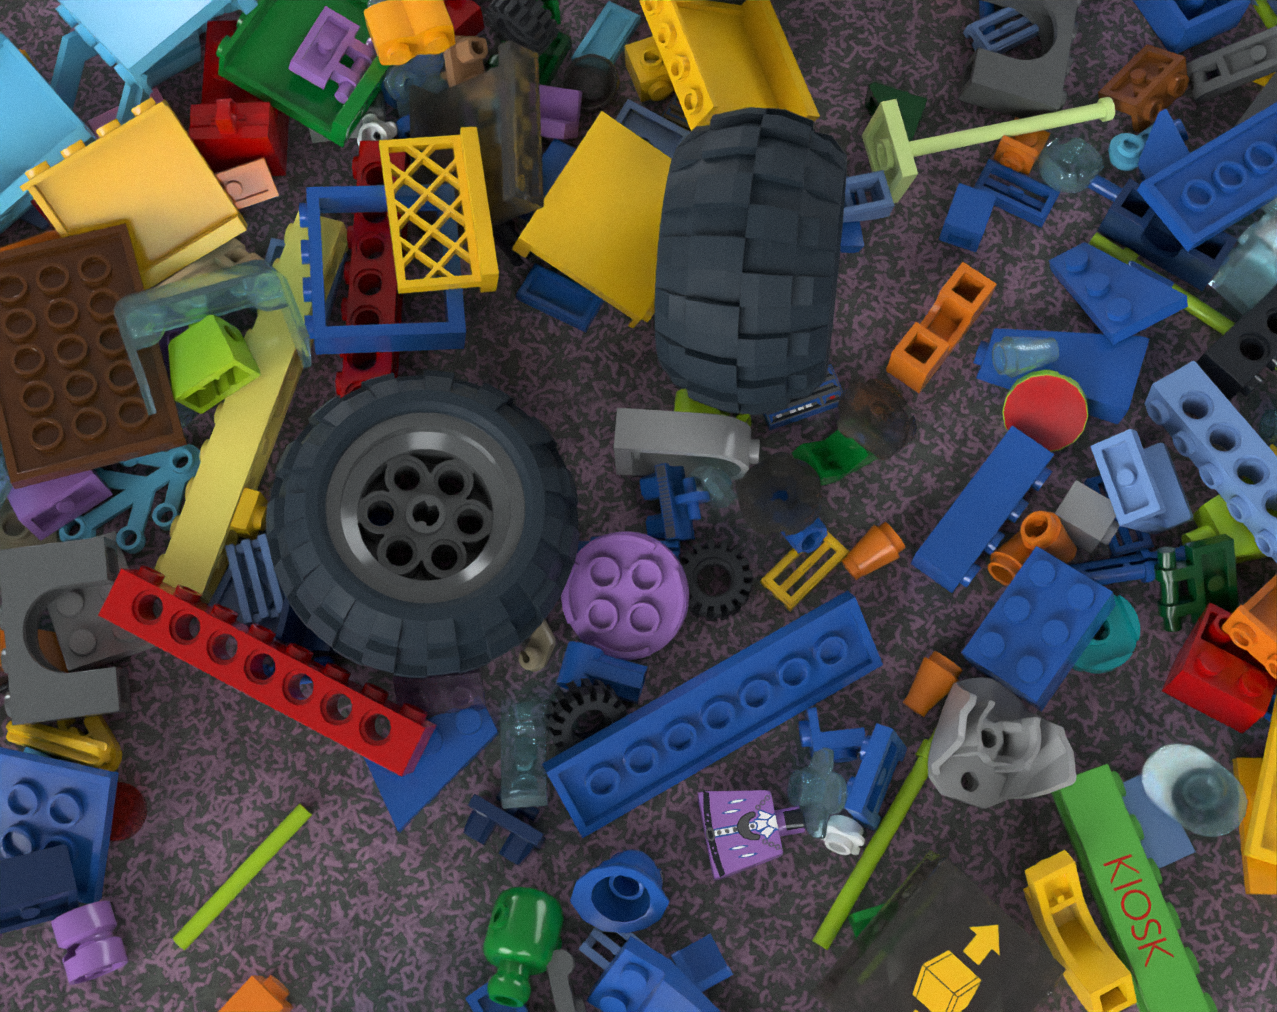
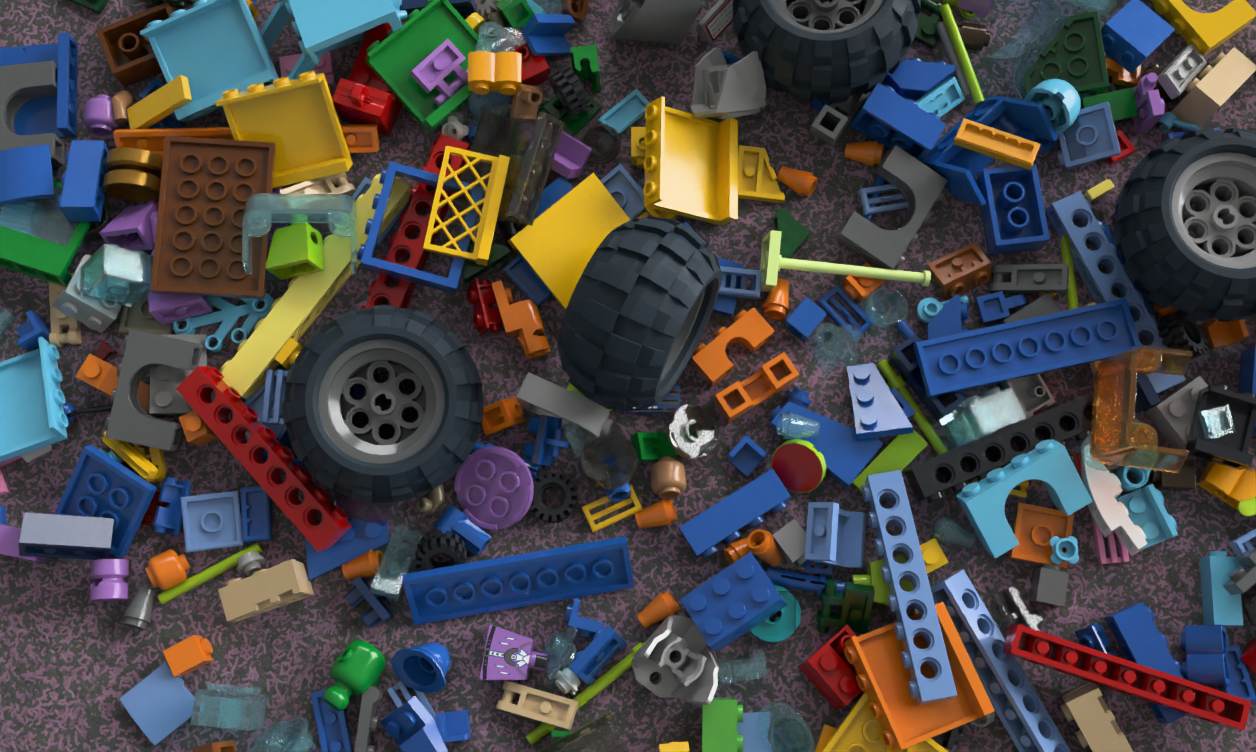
camera: 20 degrees right, 5 degrees up
(152, 667) = (196, 429): none -> orange brick
(153, 970) = (140, 609): none -> dark grey cone
(154, 815) = (170, 519): none -> blue hinge
(175, 893) = (167, 569): none -> orange head
(218, 796) = (211, 521): none -> medium blue tile
(283, 762) = (256, 515): none -> blue plate
(300, 837) = (250, 563): none -> light grey plate
(338, 869) = (265, 590): none -> tan wedge
(476, 776) = (363, 565): none -> orange cone
(479, 304) = (497, 255): none -> dark green slope
(499, 341) = (484, 318): none -> red hinge
(572, 354) = (522, 320): none -> orange plate
(597, 491) = (502, 415): none -> orange bracket
(814, 886) = (538, 705): none -> tan plate
(822, 57) = (756, 176): none -> yellow wing
(868, 494) = (668, 478): none -> medium nougat head
(878, 44) = (799, 181): none -> orange cone
(895, 258) = (748, 330): none -> orange arch
(918, 209) = (777, 301): none -> orange cone
(965, 424) = (746, 456): none -> blue panel
(1001, 319) = (798, 397): none -> blue plate
(1029, 240) = (839, 349): none -> clear light blue plate
(1094, 720) = (743, 670): none -> clear light blue leg
(1169, 351) = (893, 457): none -> lime tile
(1214, 115) = (996, 307): none -> blue plate

